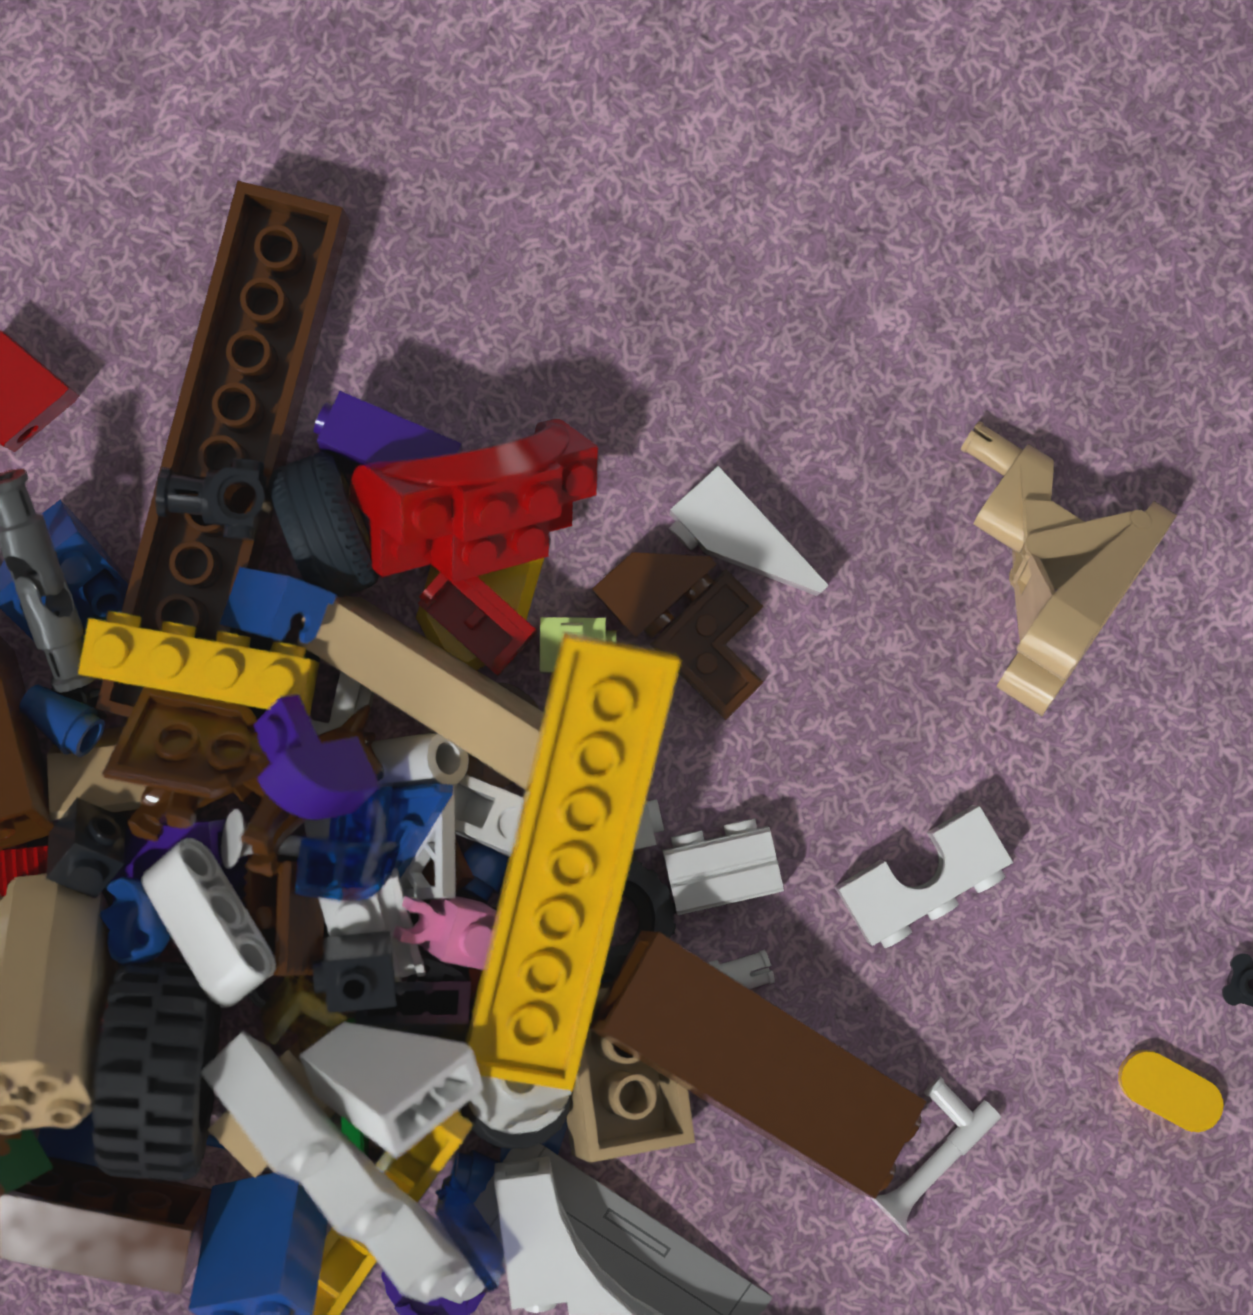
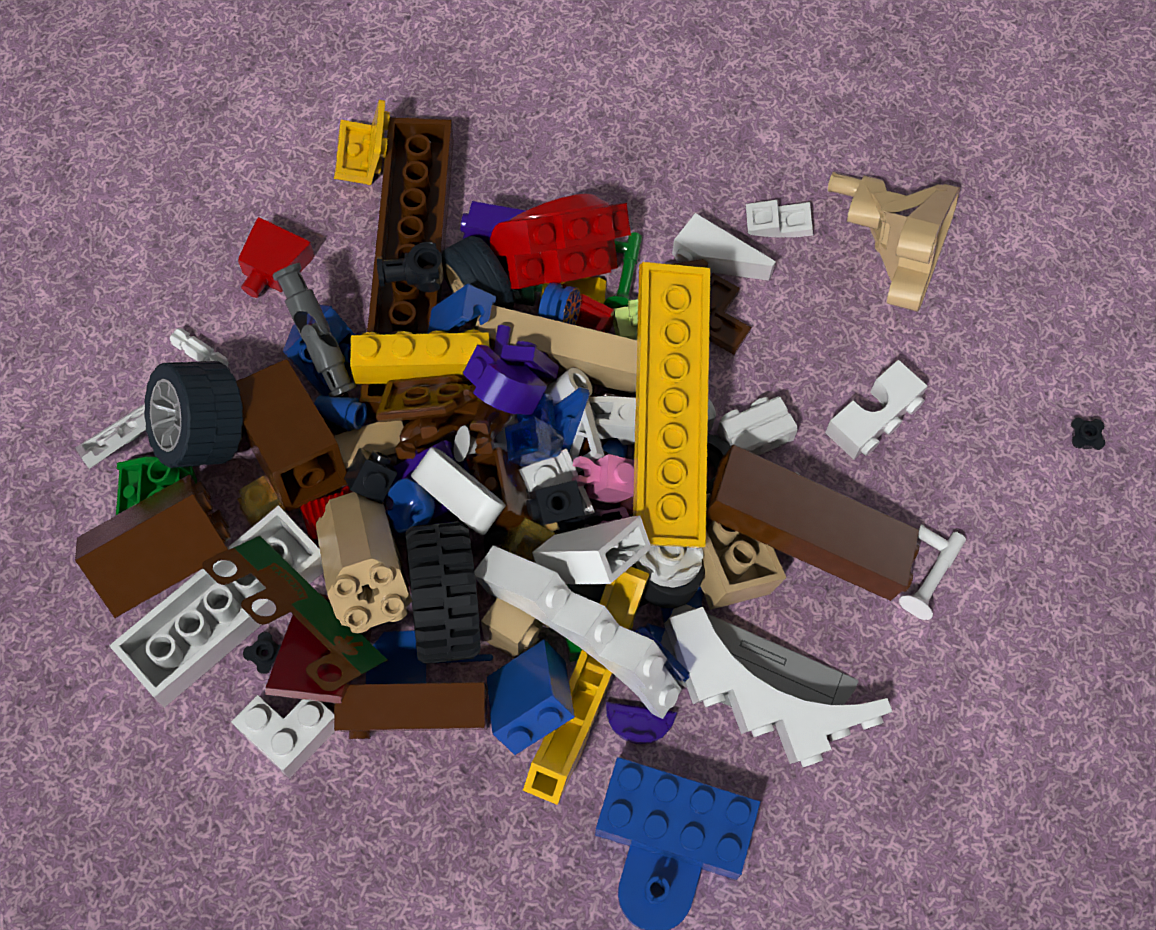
camera: 15 degrees left, 20 degrees down
(182, 214) = (362, 147): none -> yellow bracket
(353, 721) = (524, 354): none -> dark purple plate
(444, 616) = (560, 303): none -> blue wheel
(563, 588) = (631, 252): none -> green piece
(863, 491) = (772, 220): none -> white slope
(1170, 1090) = (1061, 504): yellow tile -> none

